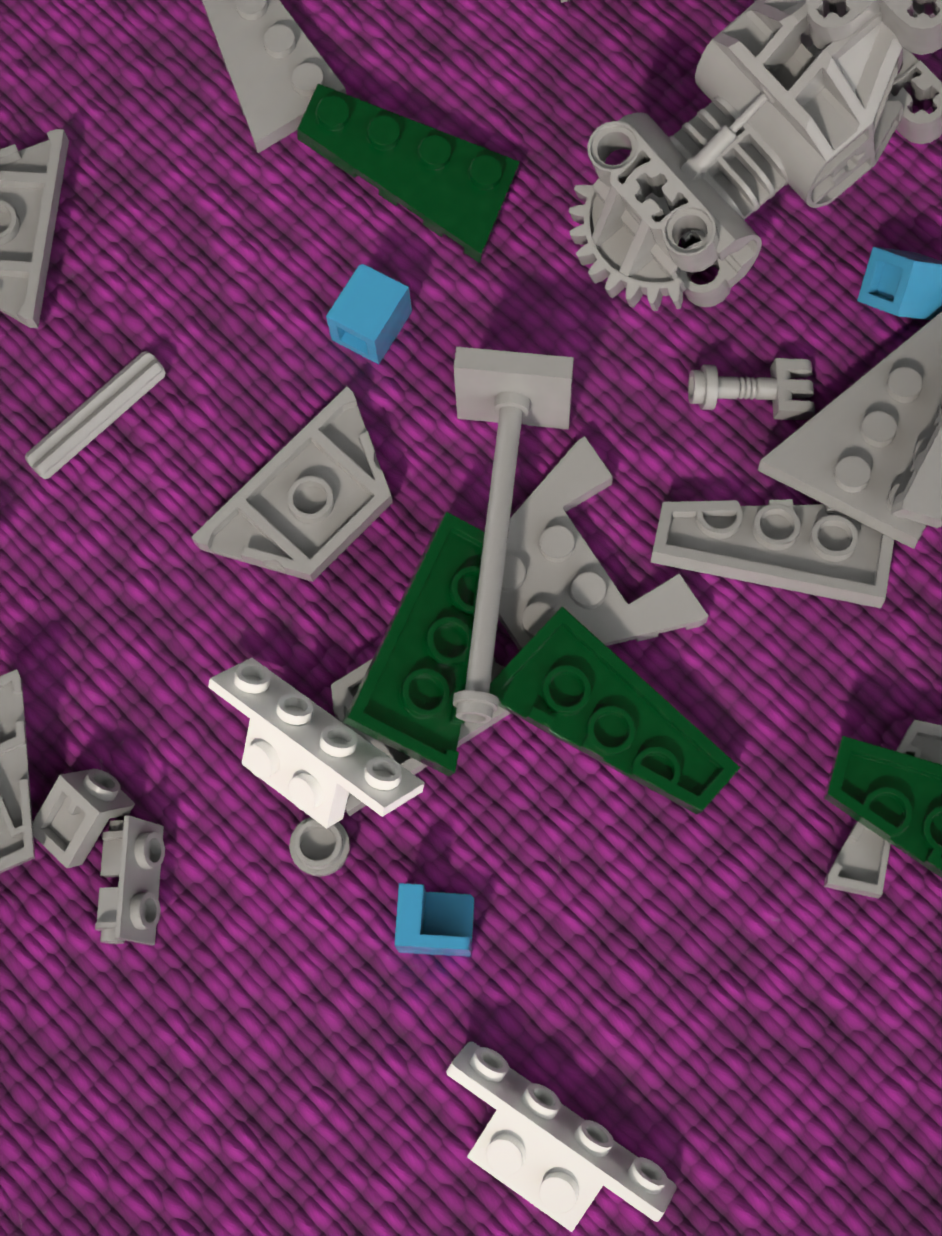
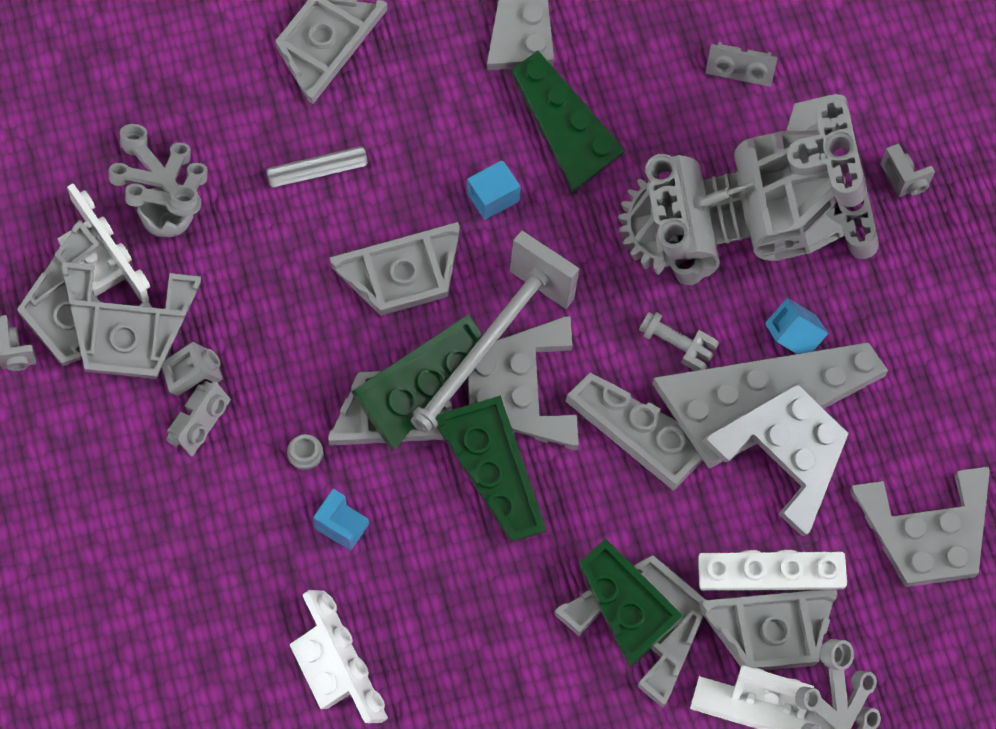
camera: 20 degrees right, 5 degrees down
(308, 750) = (325, 397): white bracket -> none

